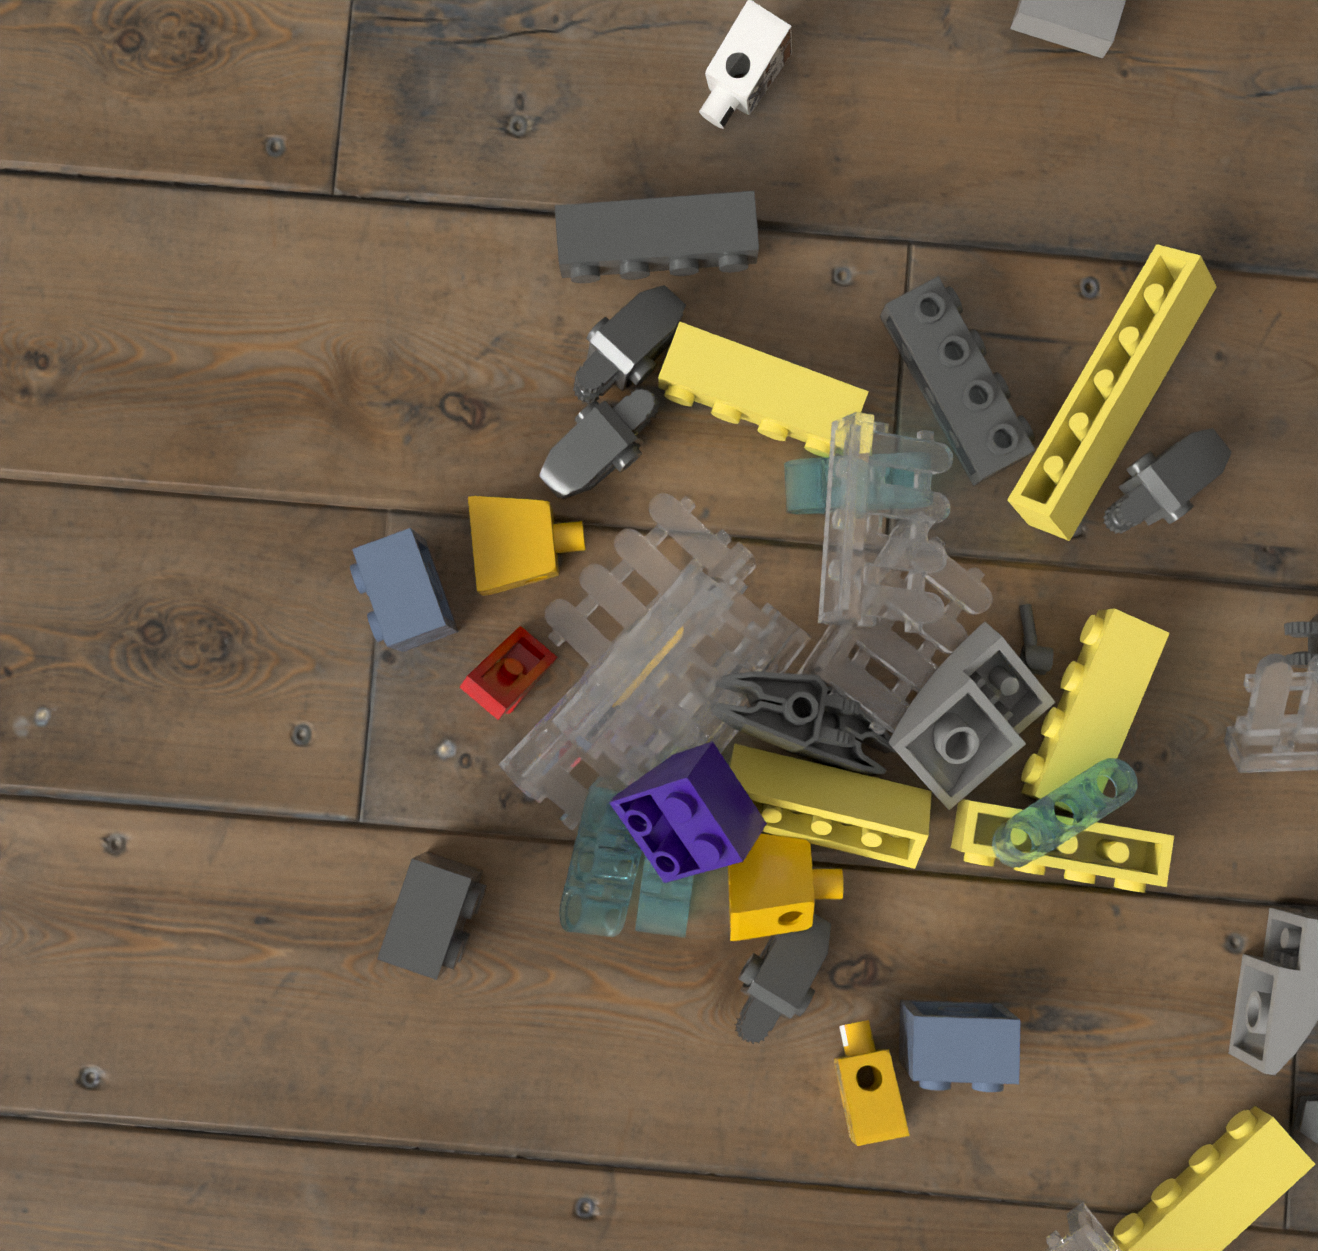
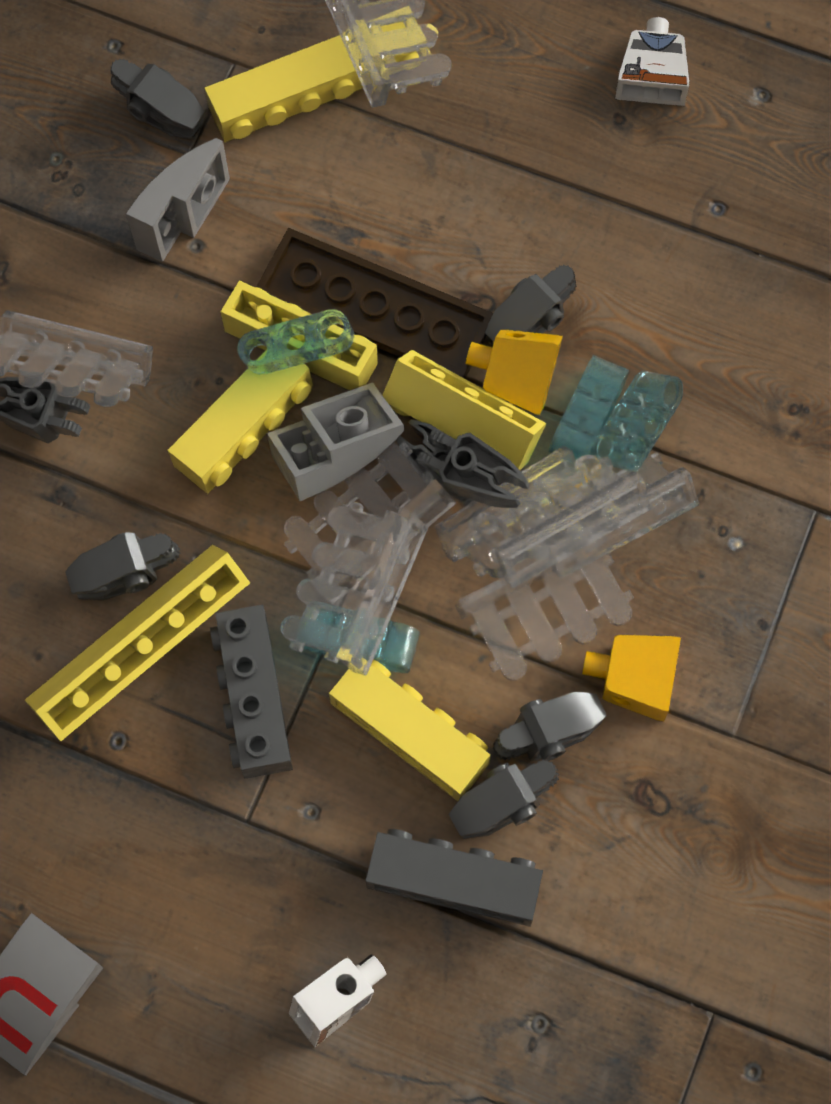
camera: 165 degrees left, 15 degrees down
(403, 591) = (738, 652): sand blue brick -> none
(431, 915) = (776, 416): dark grey brick -> none
(508, 673) = (673, 575): red slope -> none
(690, 814) = (566, 421): dark purple slope -> none
(874, 1111) = (494, 217): yellow torso -> none
(959, 1044) = (421, 228): sand blue brick -> none
(985, 925) = (377, 301): none -> dark brown plate
(1036, 658) = (269, 475): dark grey hand -> none

